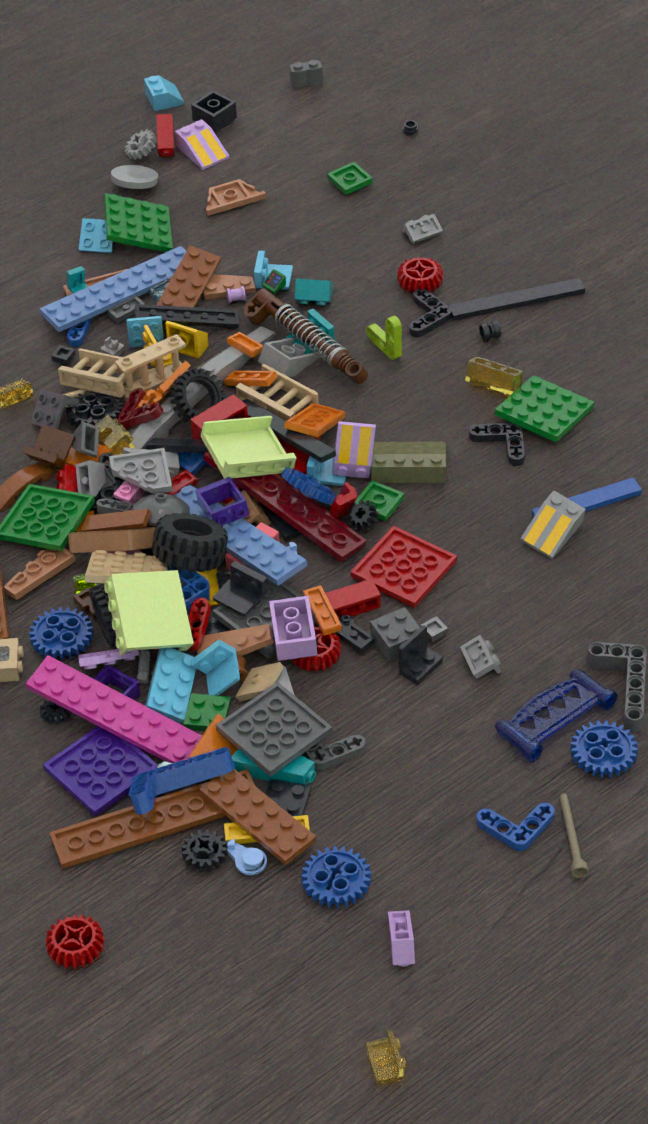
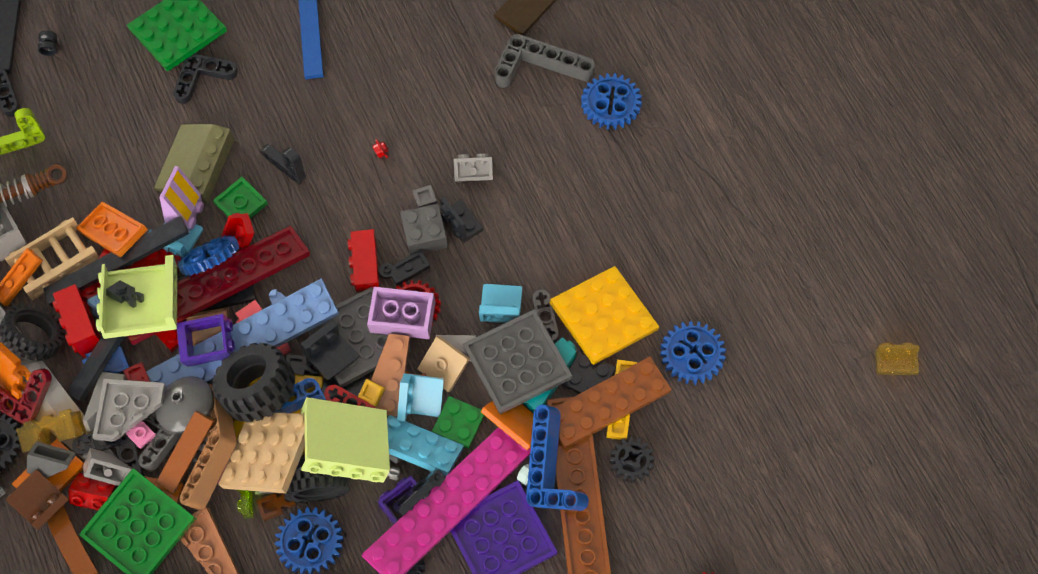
camera: 75 degrees left, 20 degrees up
(107, 657) = (365, 506): lavender plate -> none
(121, 687) = (419, 491): none -> black hinge
(212, 634) = (371, 392): none -> yellow tile
(247, 859) = (649, 424): light blue piece -> none
(248, 437) = (124, 292): none -> black plate
(322, 611) = (364, 285): orange tile -> none
(340, 712) = (500, 303): none -> medium azure bracket
(353, 795) = (604, 315): none -> yellow plate
(358, 512) = (258, 211): black gear -> none
(401, 938) = (772, 315): lavender slope -> none
(404, 566) = (335, 202): red plate -> none
(426, 515) = (287, 162): none -> black beam
(473, 583) = (380, 149): none -> red plate
(493, 375) = (117, 55): clear yellow brick -> none
(516, 832) = (678, 196): blue beam -> none
(528, 739) = (548, 92): clear blue piece -> none
(553, 524) = (336, 62): light grey slope -> none
(578, 867) = (729, 157): dark tan piece -> none

